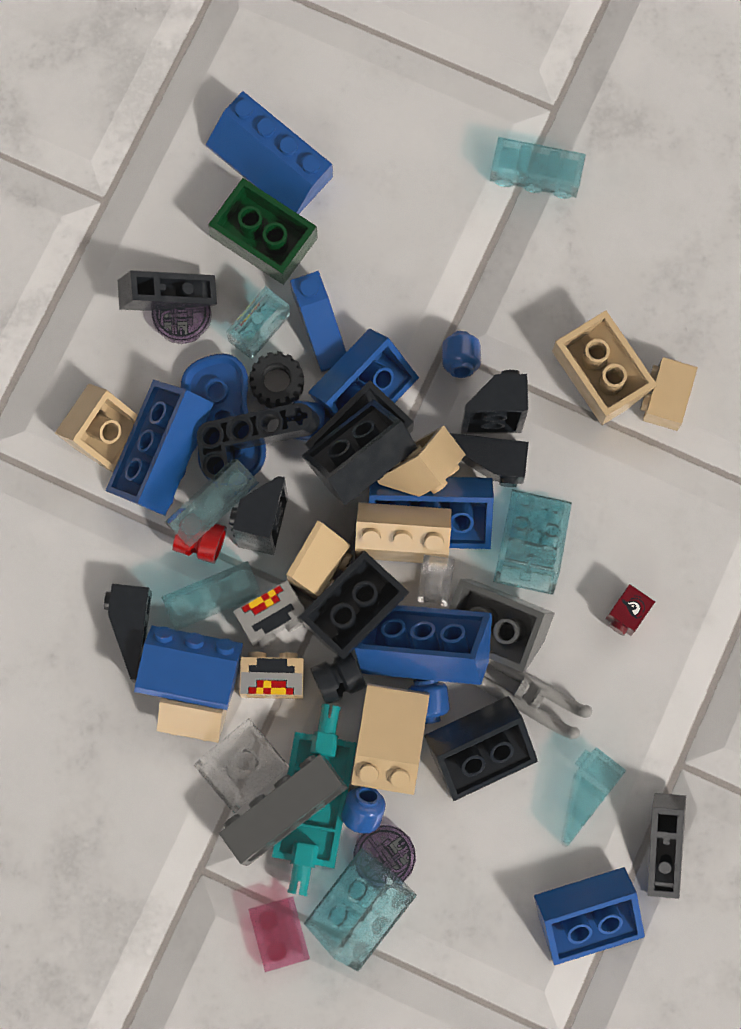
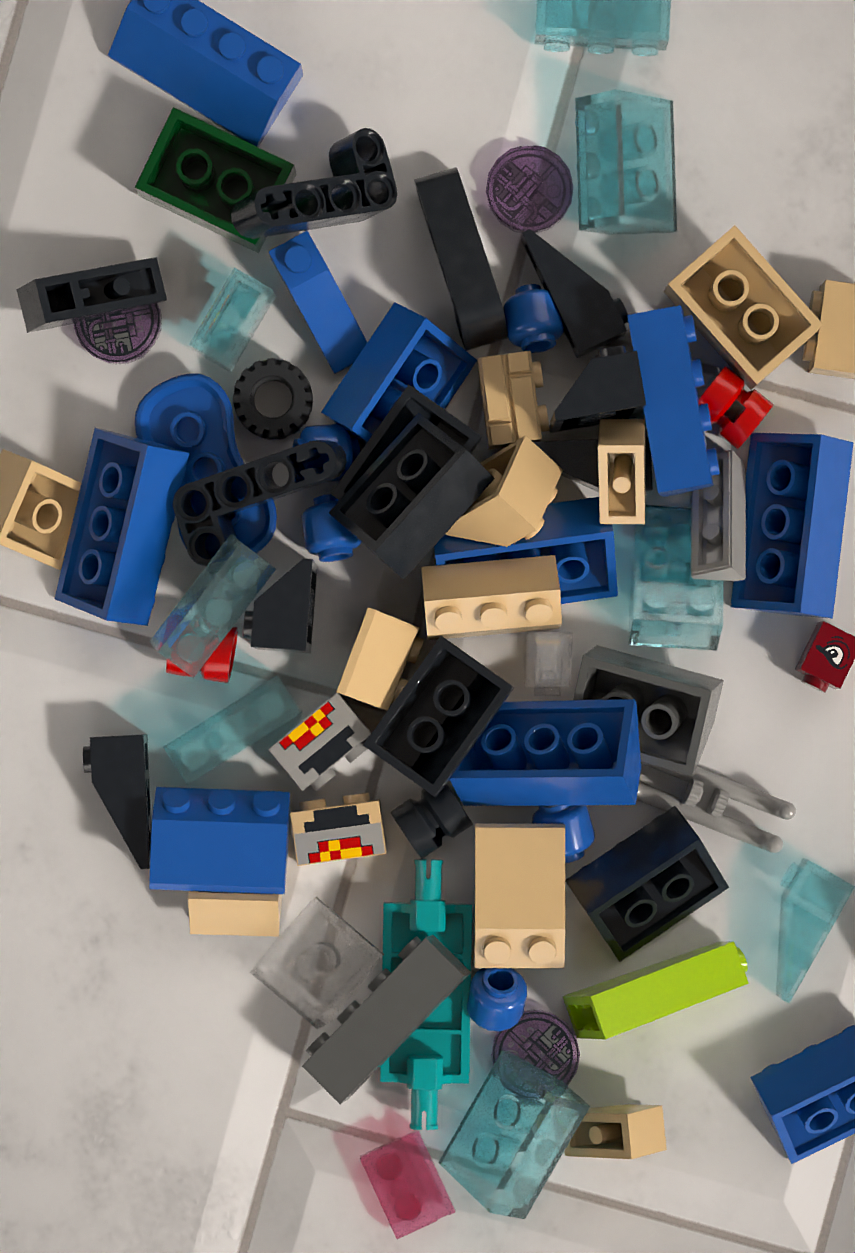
camera: 10 degrees left, 10 degrees up
(298, 474) = (324, 534): none -> blue head
(351, 253) = (357, 191): none -> black beam
(419, 308) = (462, 259): none -> black beam
(433, 920) = (619, 1132): none -> tan slope
(437, 402) = (511, 398): none -> tan brick
(471, 272) = (529, 189): none -> clear purple tile
(476, 822) = (656, 991): none -> lime slope
(495, 346) = (584, 304): none -> black slope
(505, 459) = (622, 471): none -> tan slope
(538, 263) = (625, 163): none -> clear light blue slope
(546, 419) = (672, 403): none -> blue slope
(567, 503) = (720, 523): none -> light grey slope
(579, 424) = (721, 395): none -> red wheel
(617, 517) = (794, 523): none -> blue slope

